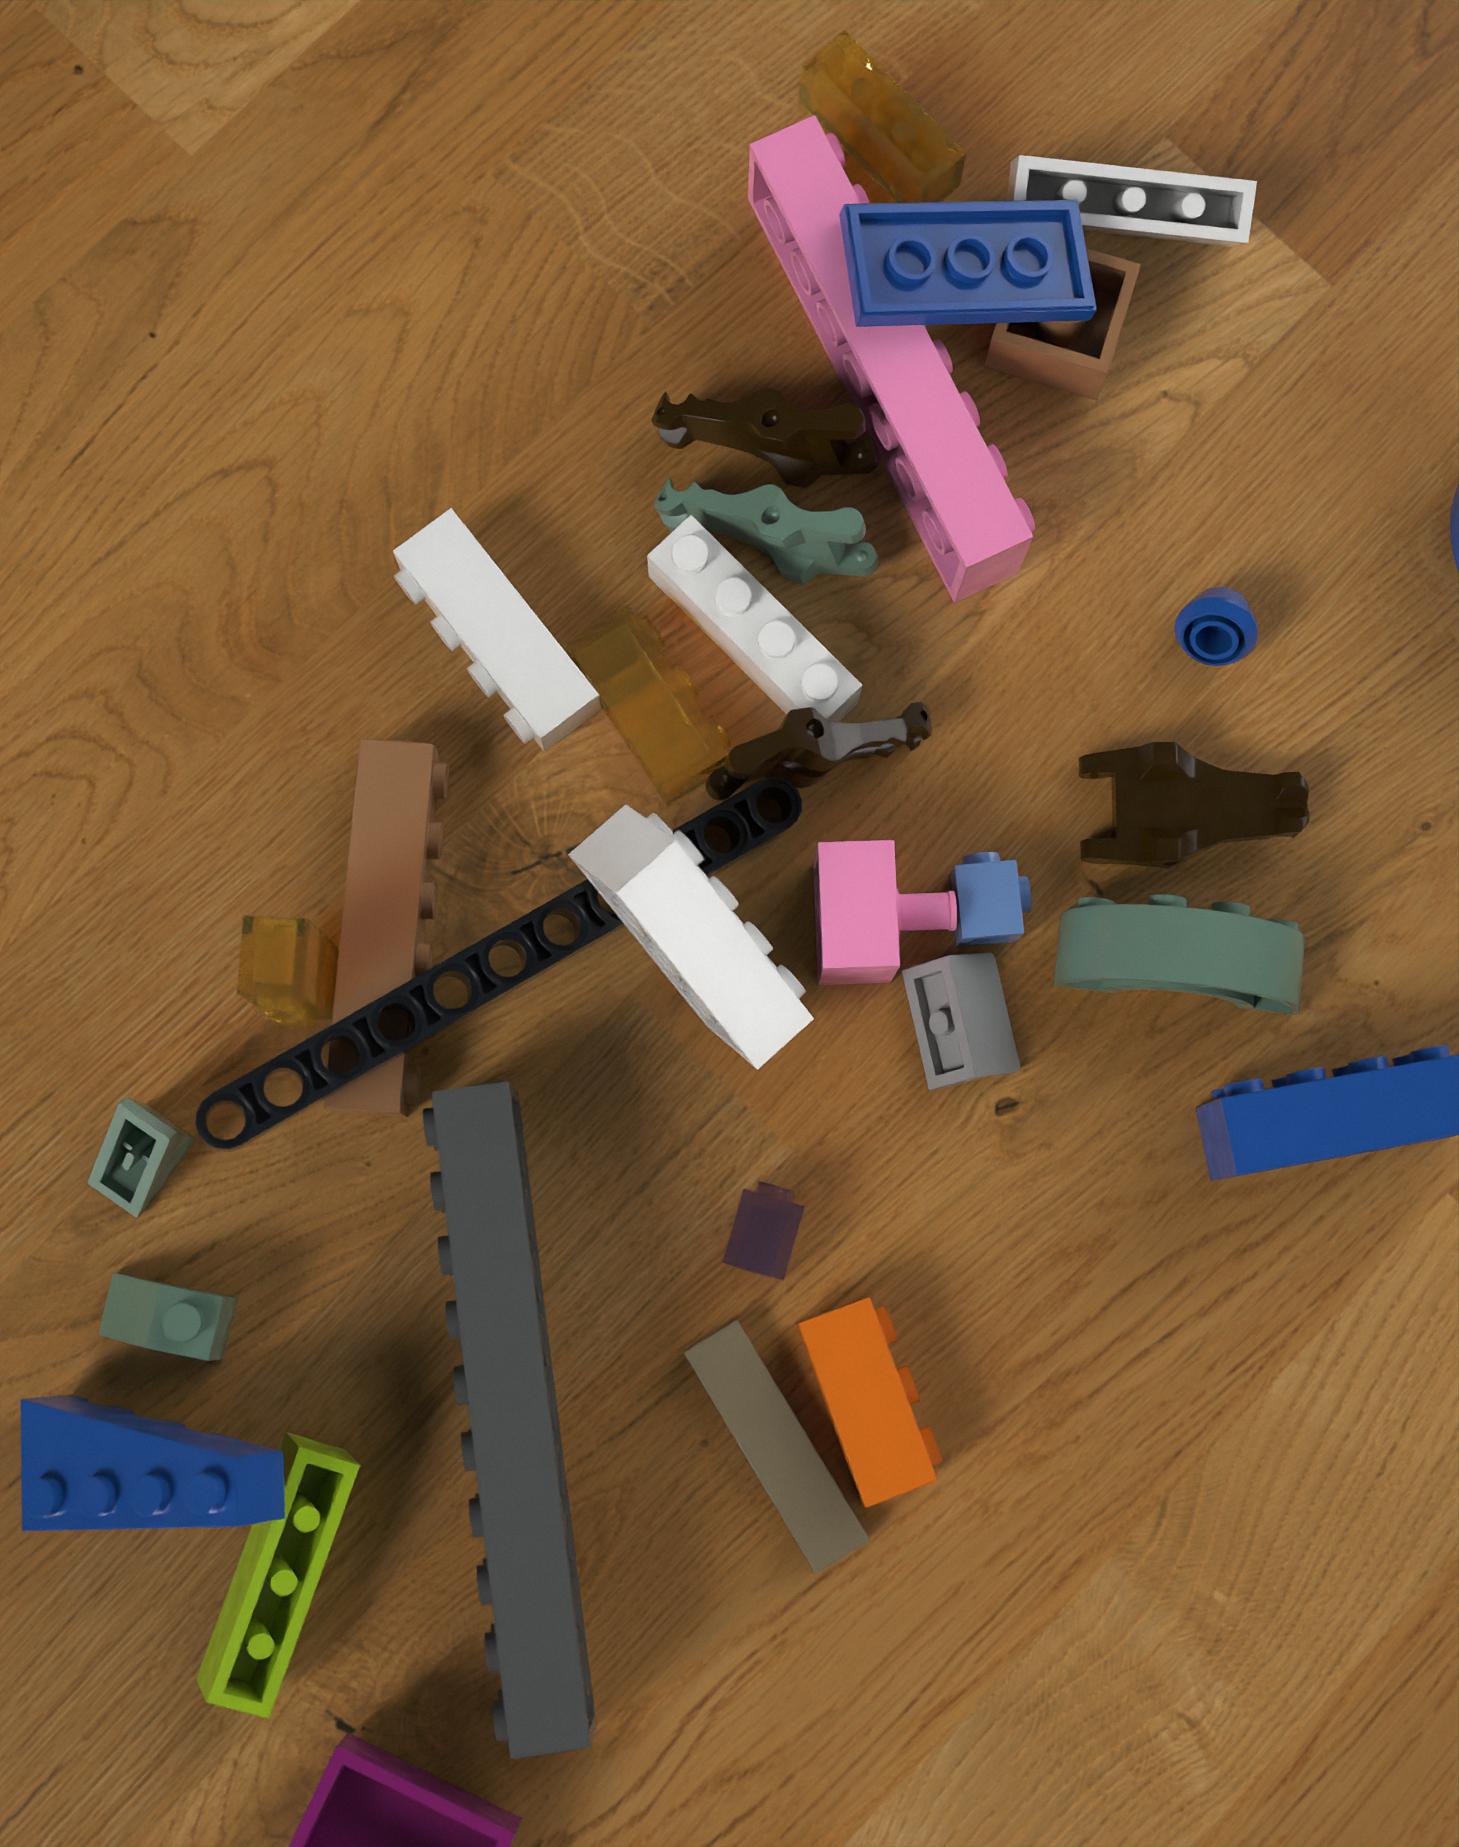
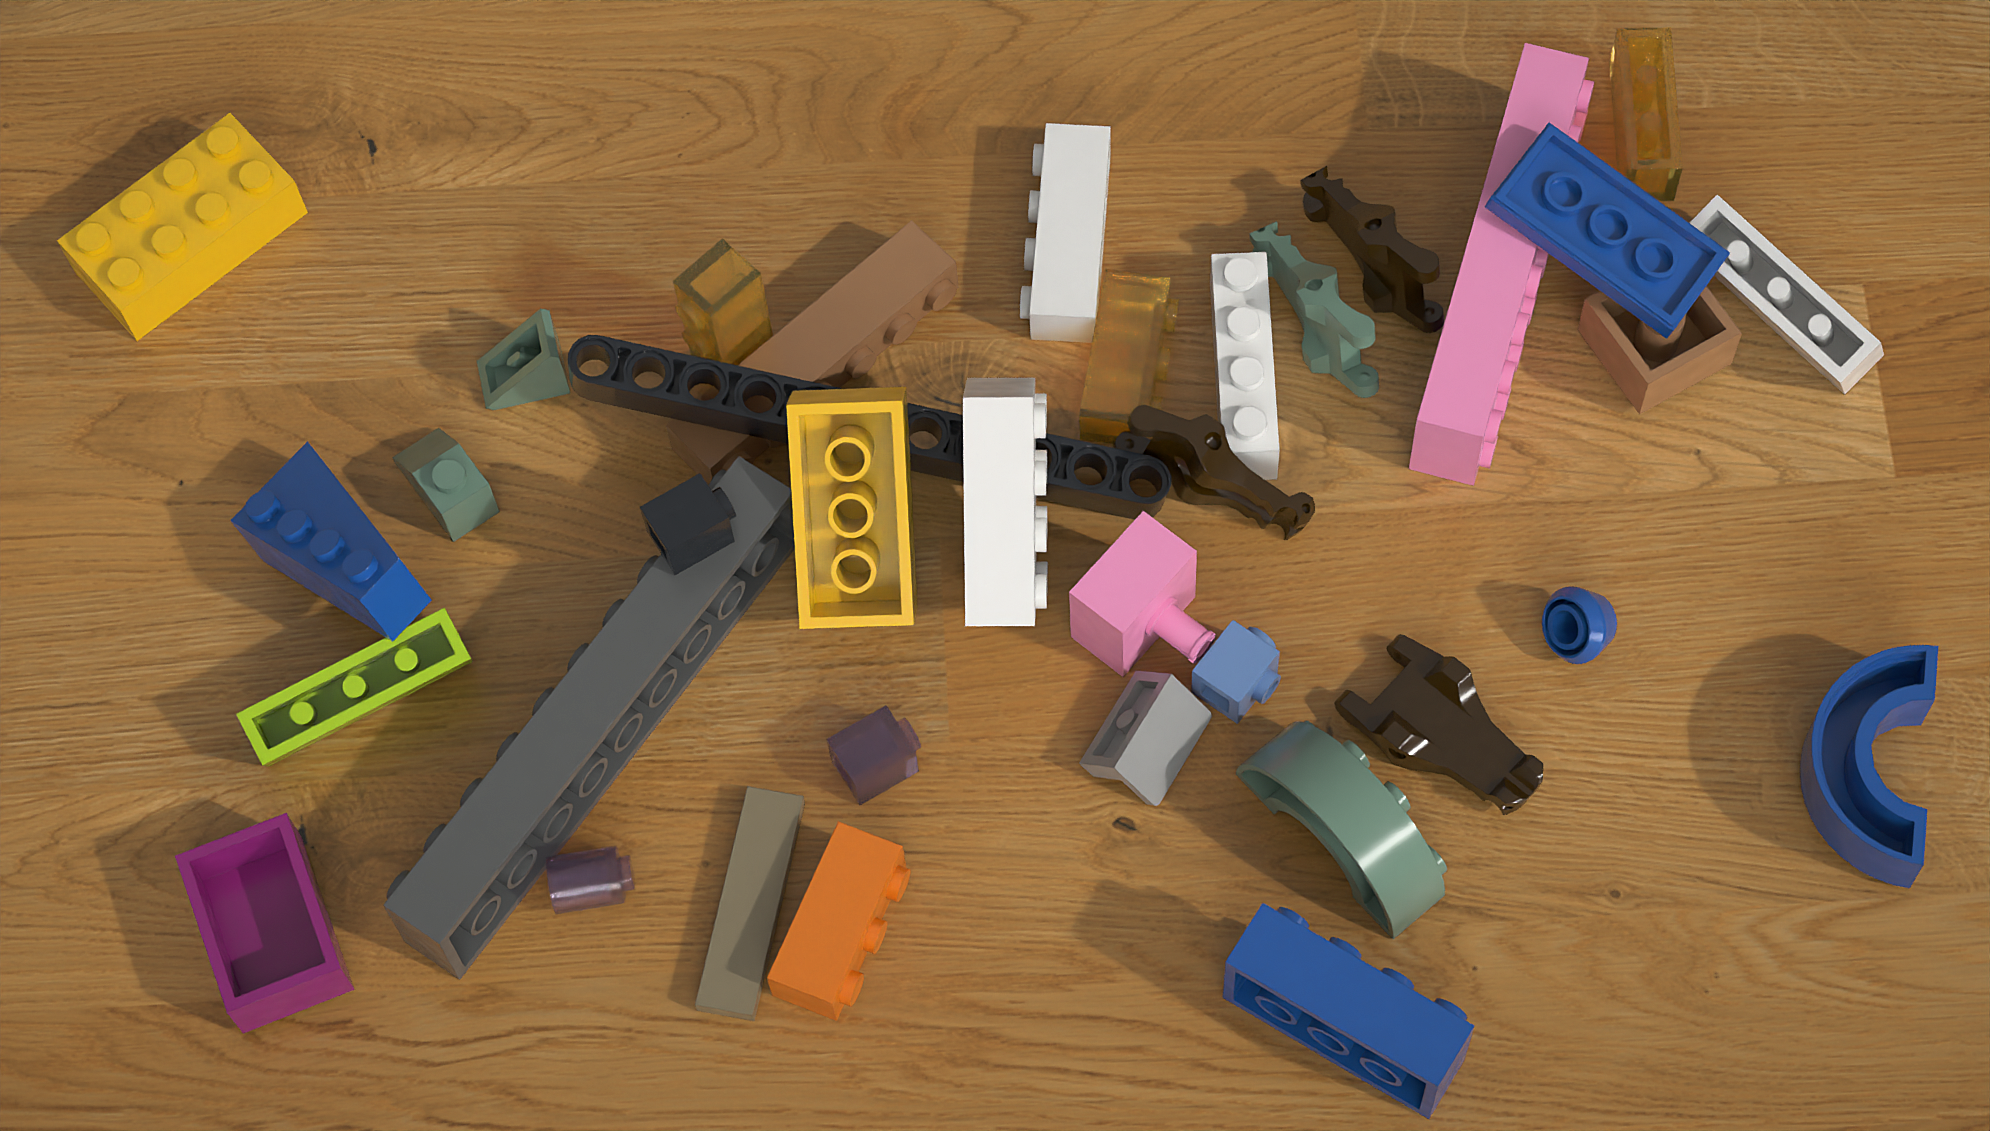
camera: 50 degrees right, 15 degrees down
(456, 1194) = (689, 523): none -> black brick
(566, 1046) = (852, 507): none -> yellow brick
(630, 1551) = (589, 879): none -> brick

